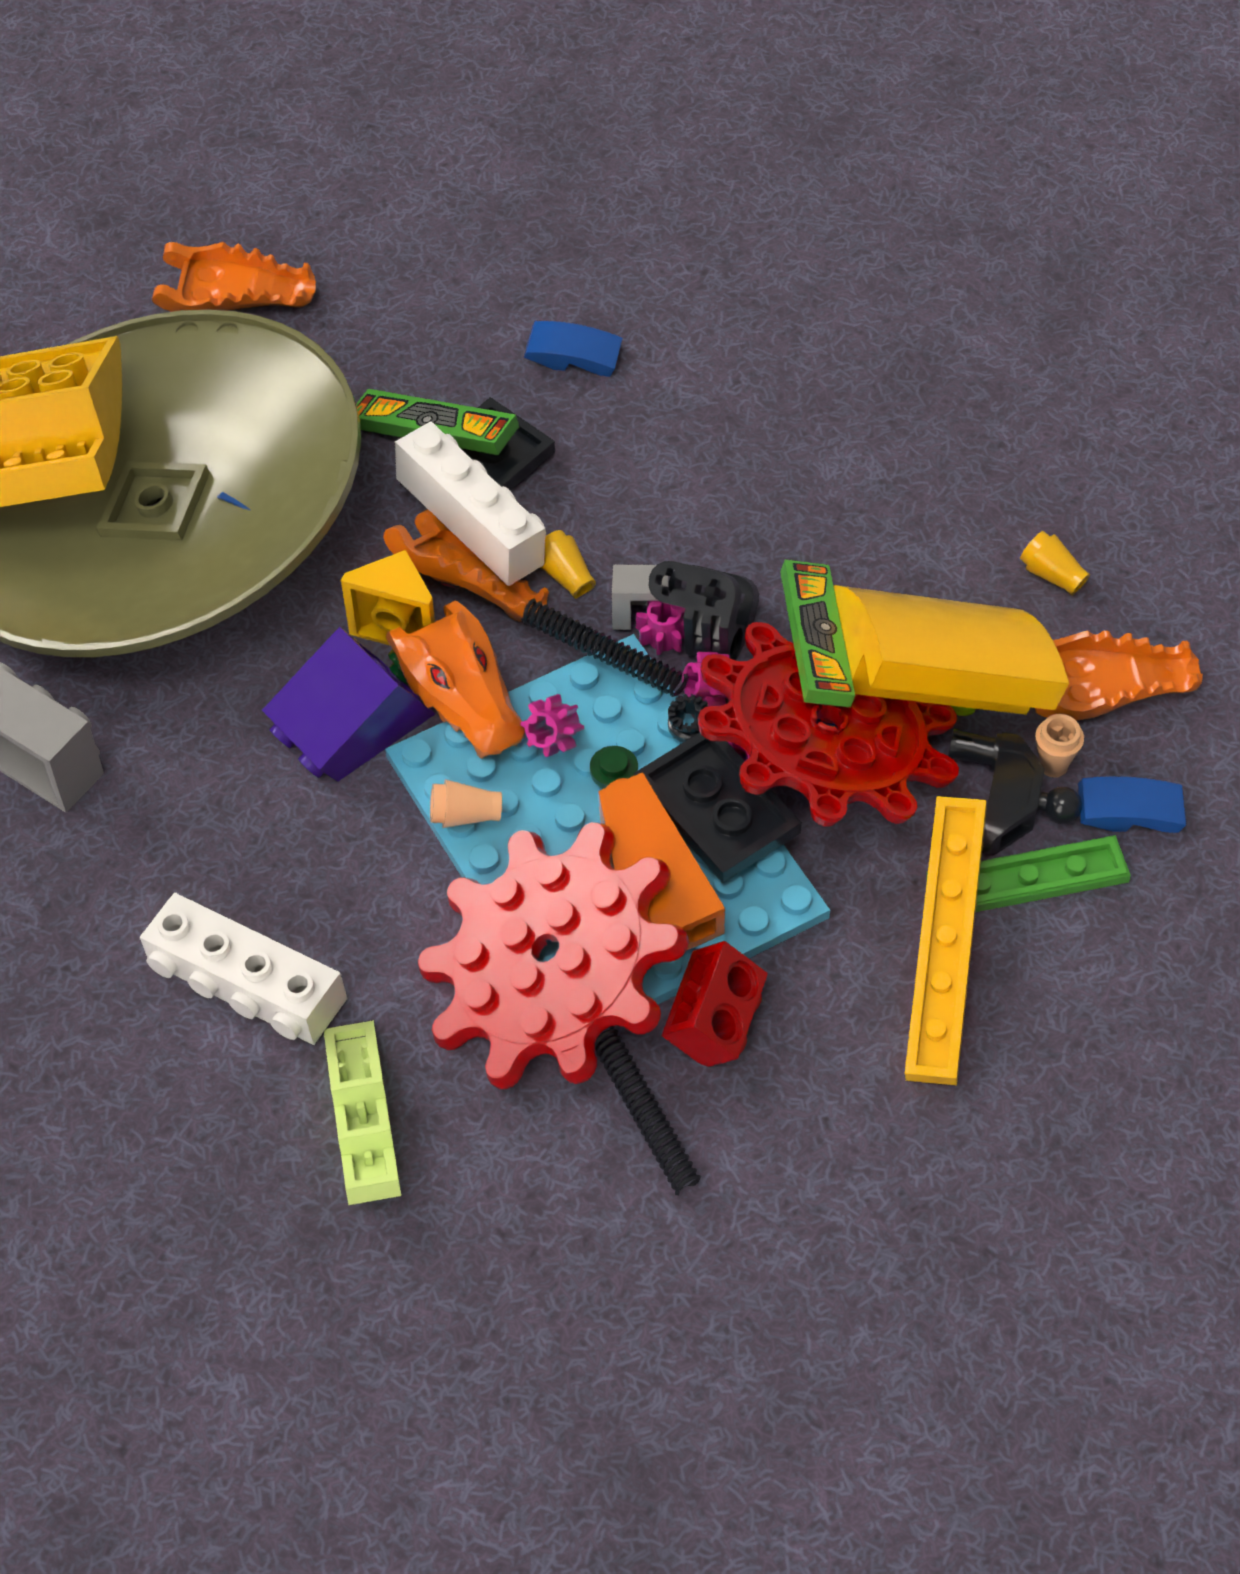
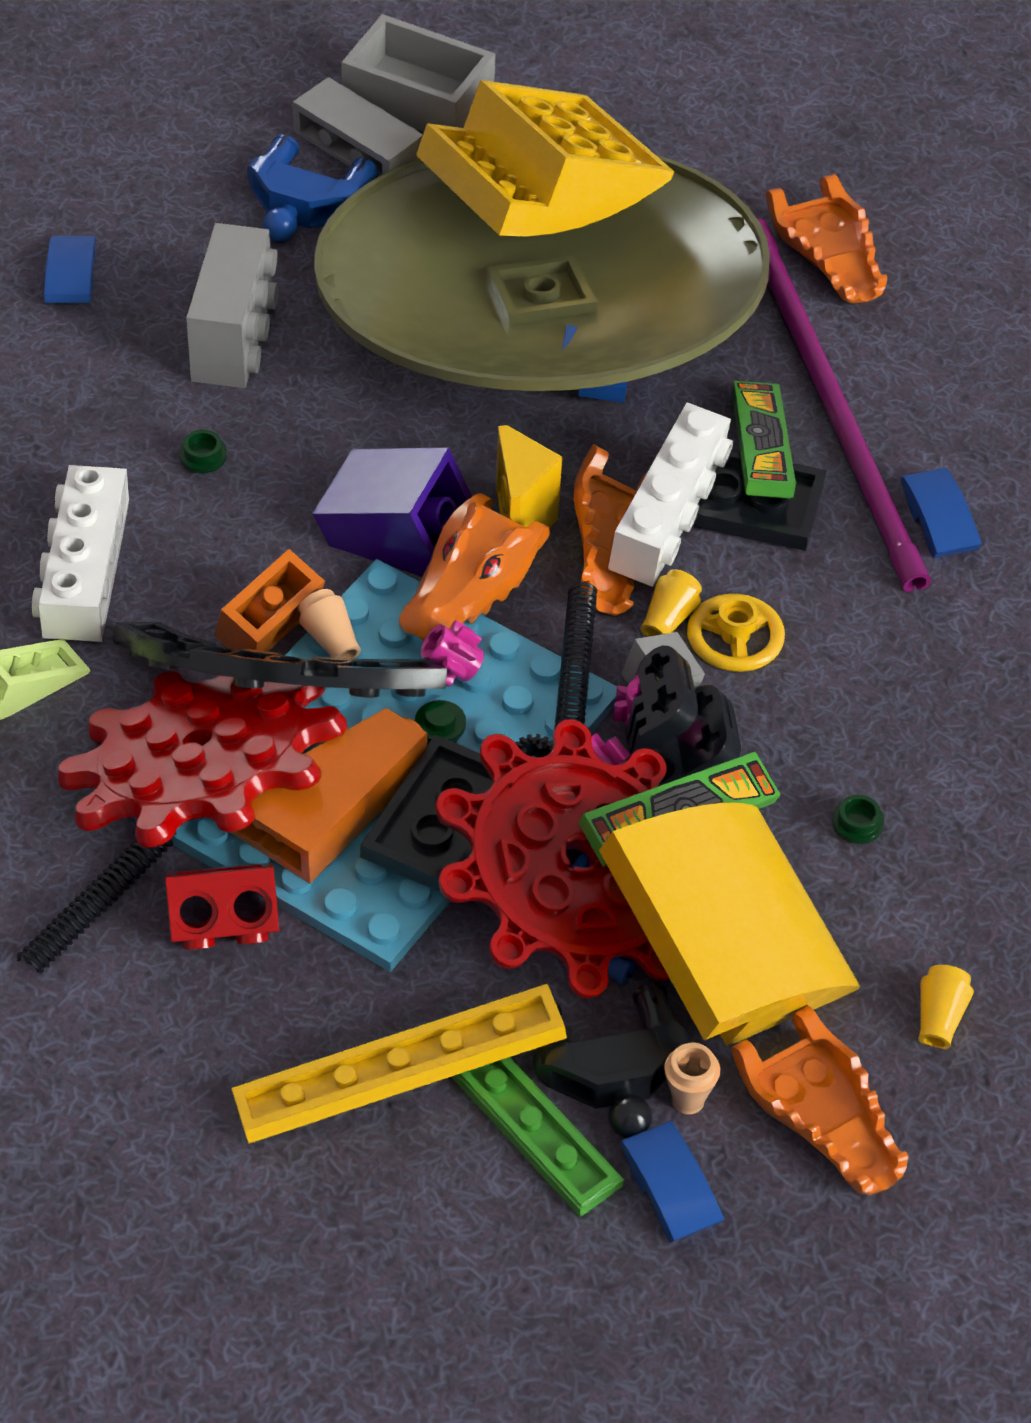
camera: 60 degrees right, 5 degrees down
(169, 833) = (202, 451): none -> dark green plate
(408, 845) = (268, 605): none -> orange brick
(500, 873) = (252, 668): none -> black plate
(600, 390) = (903, 553): none -> magenta piece
(613, 531) = (736, 620): none -> yellow piece
(850, 538) = (858, 819): none -> dark green plate

